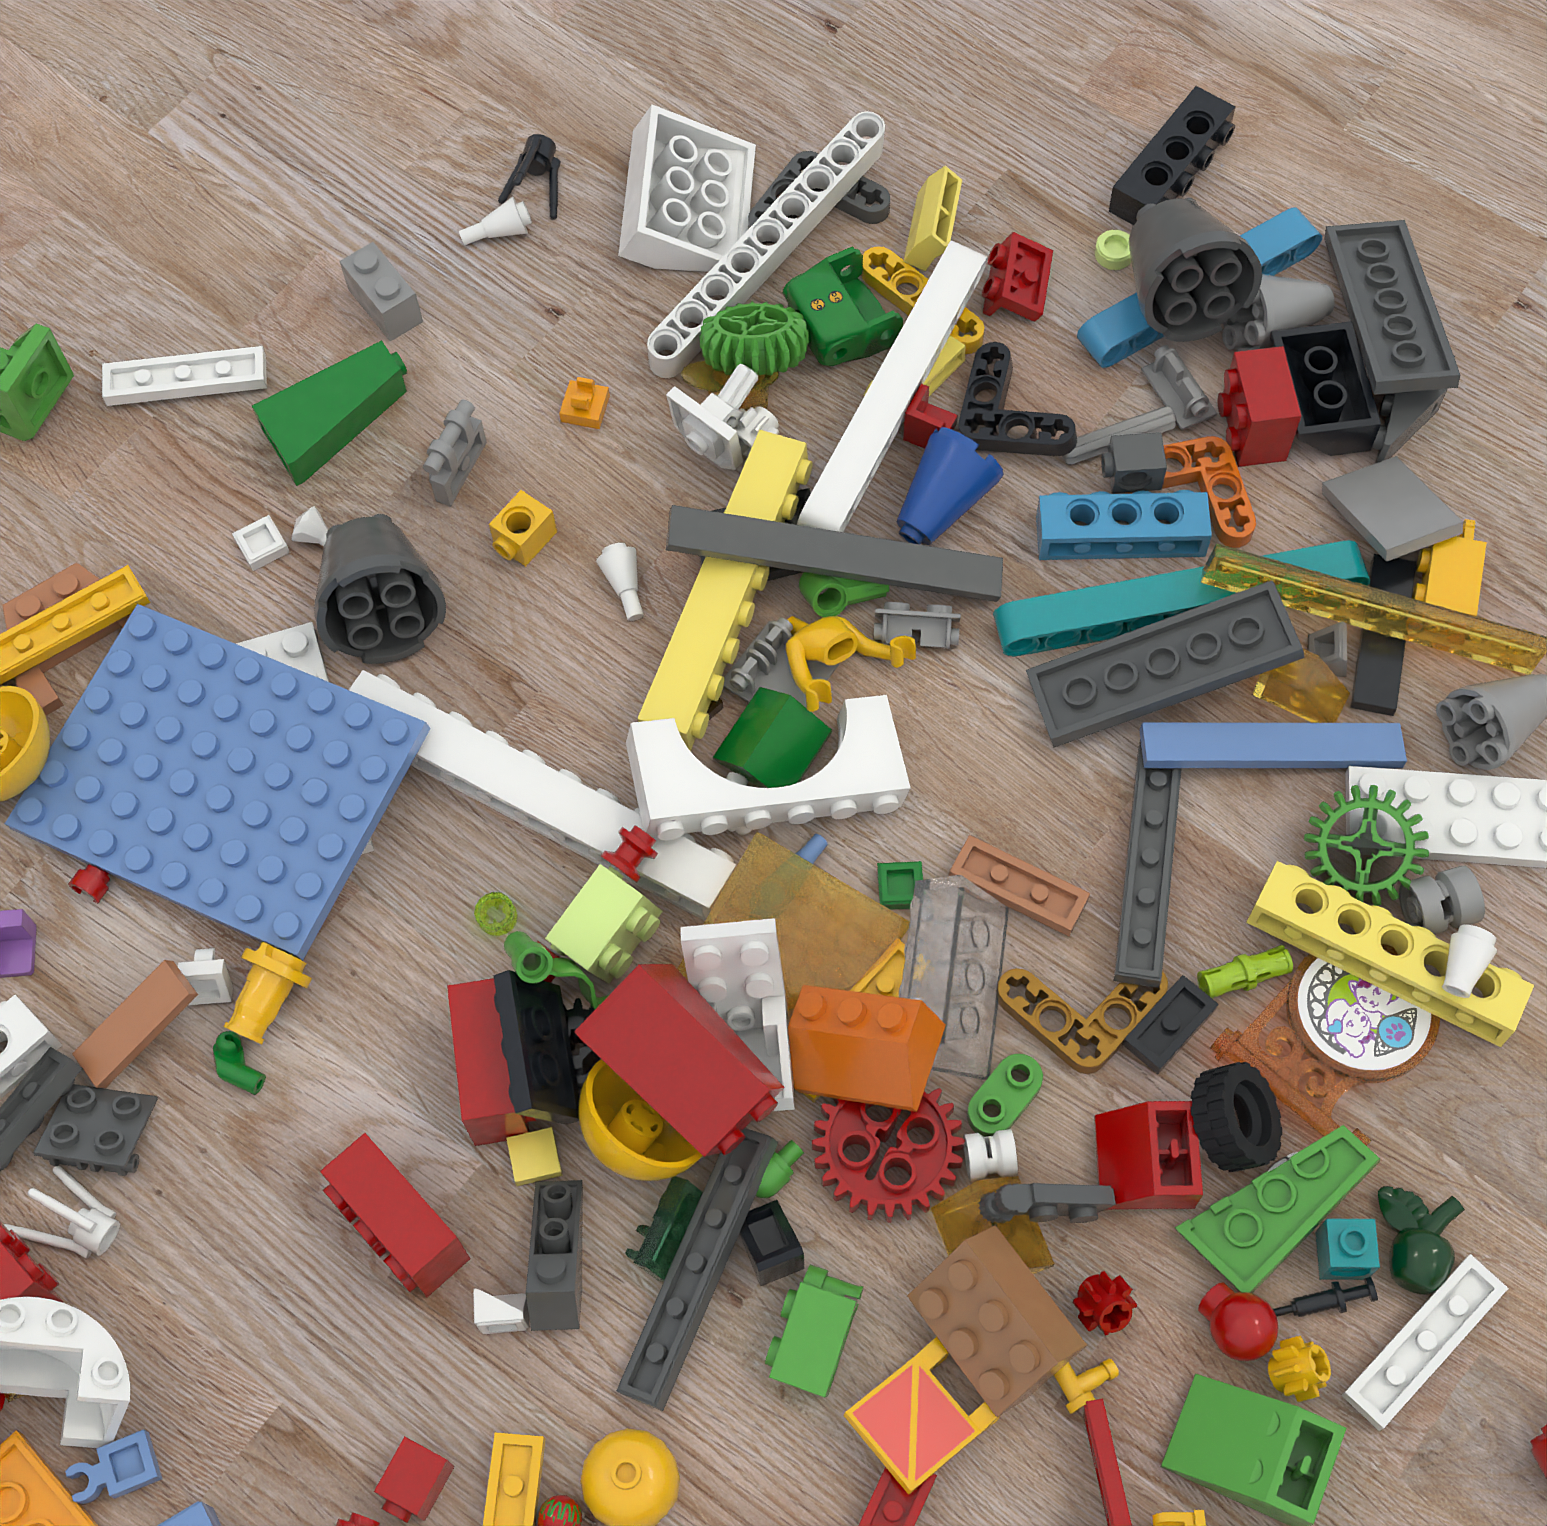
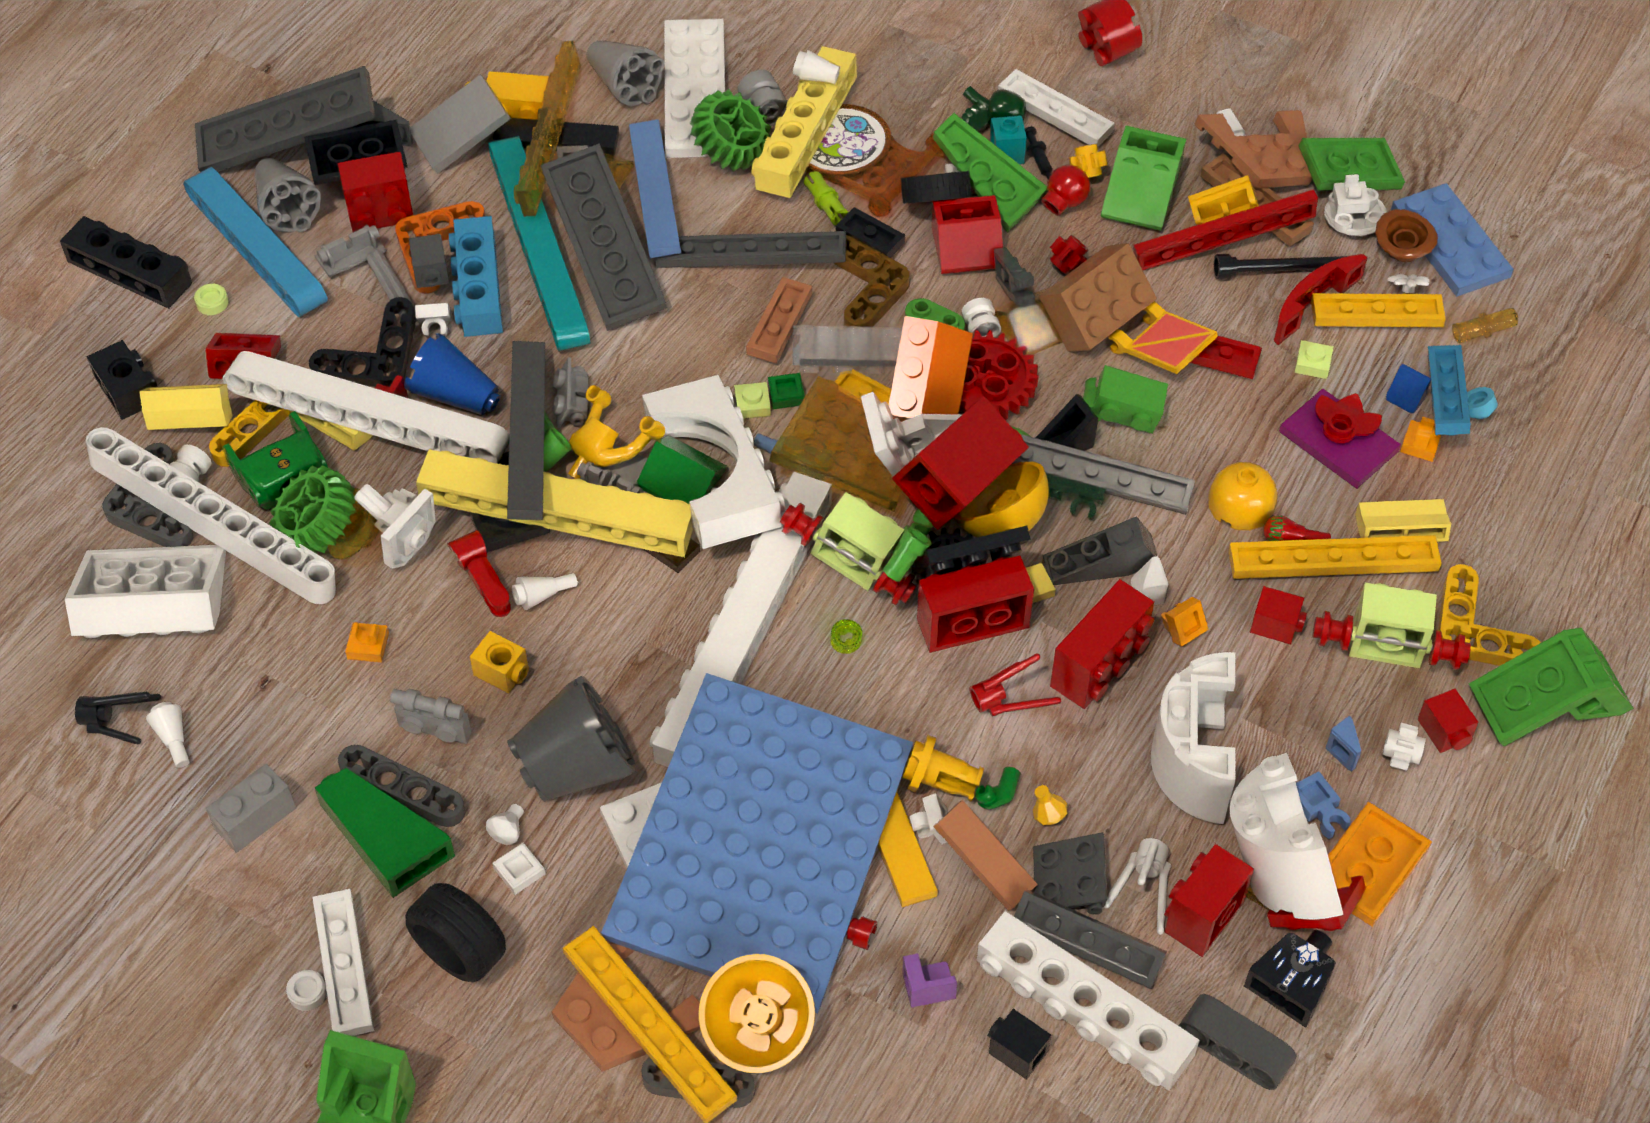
camera: 100 degrees left, 10 degrees down
(151, 1294) = (1191, 774): none -> white cylinder
(164, 461) = (455, 932): none -> black tyre
(168, 343) = (306, 990): none -> white tile
(173, 939) = (905, 859): none -> yellow tile
(196, 1120) = (1049, 807): none -> yellow rock
(371, 1074) = (990, 692): none -> red plant
(383, 430) = (404, 781): none -> dark grey beam
(428, 1346) = (1185, 621): none -> light orange tile
(652, 516) = (473, 557): none -> red piece
(848, 227) = (192, 461): none -> white wheel
(888, 840) = (753, 399): none -> yellowish green plate
(989, 160) = (121, 377): none -> black brick
(1060, 473) = (433, 314): none -> white tile
(1190, 269) = (261, 217): dark grey cone -> none

